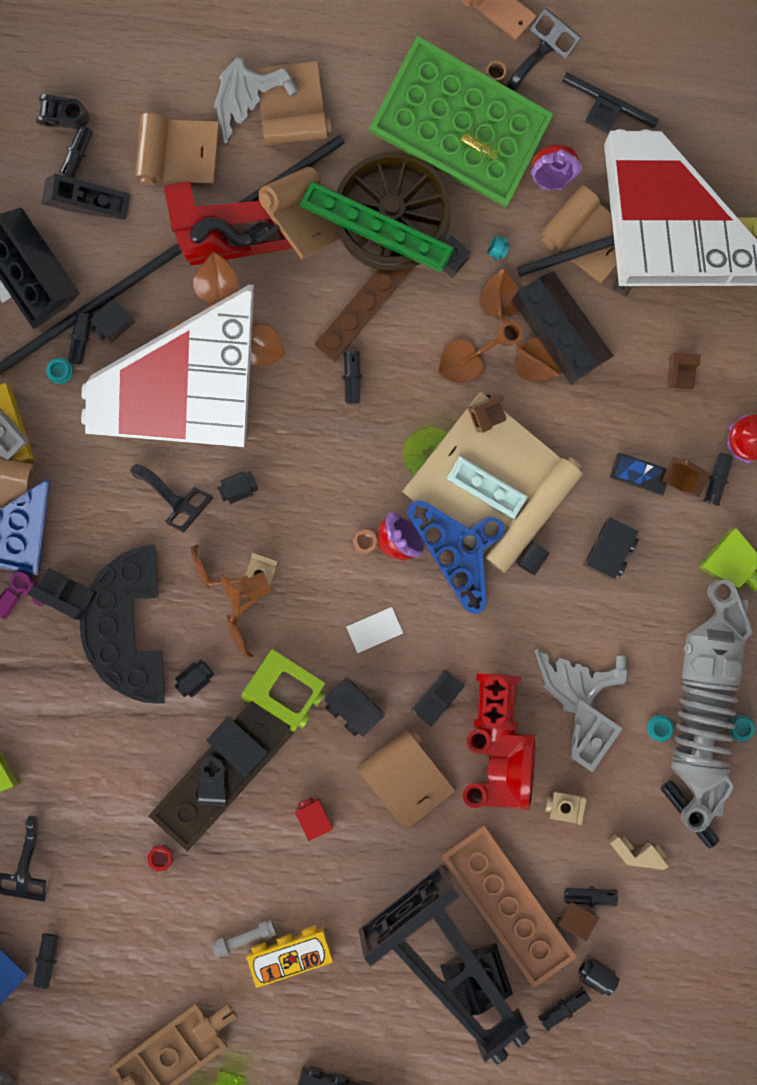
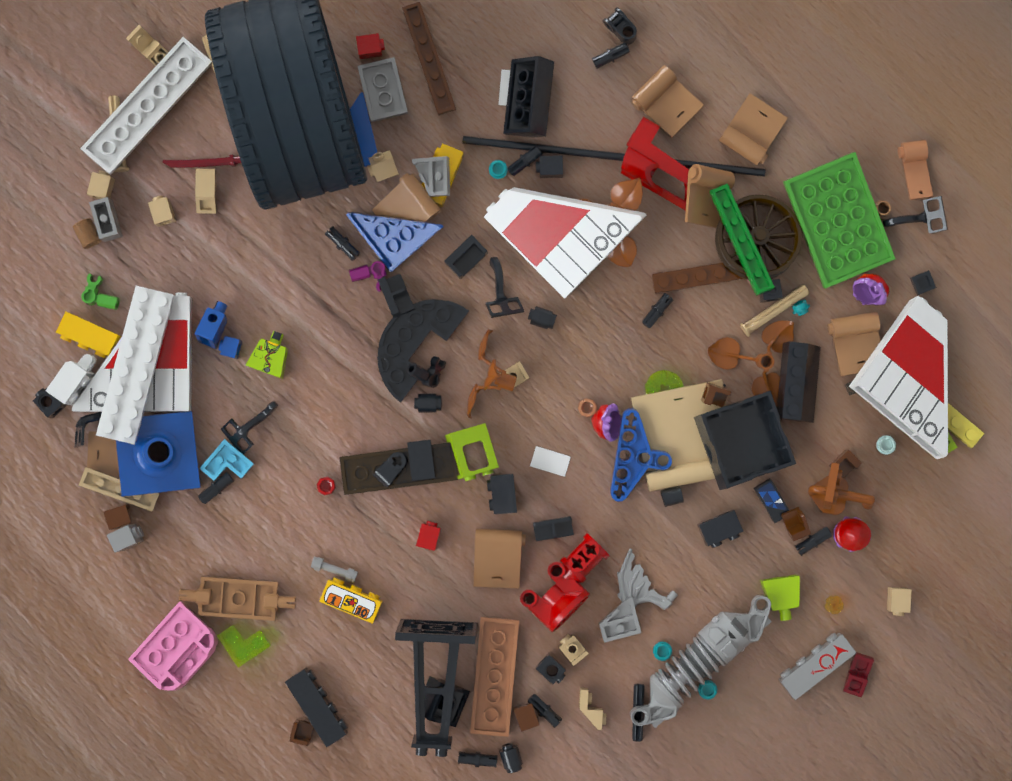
camera: 45 degrees right, 0 degrees up
(28, 918) = (226, 456): none -> medium azure plate
(84, 197) = (593, 85): black slope -> none
(103, 491) = (466, 257): none -> black panel
(171, 651) = (430, 376): none -> black bar
(205, 225) = (649, 159): black piece -> none
(241, 91) = (730, 99): light grey animal -> none
(473, 273) = (774, 310): none -> tan axle
(479, 146) = (837, 242): clear yellow piece -> none
(486, 487) = (679, 435): light aqua tile -> none
(550, 841) = (543, 665): none -> black brick
(559, 435) = (744, 440): none -> black tile
(566, 255) = (834, 344): black bar -> none
(626, 108) = (929, 266): black bar -> none
(696, 413) = (832, 492): none -> dark orange plate
(708, 315) = (886, 445): none -> light aqua plate

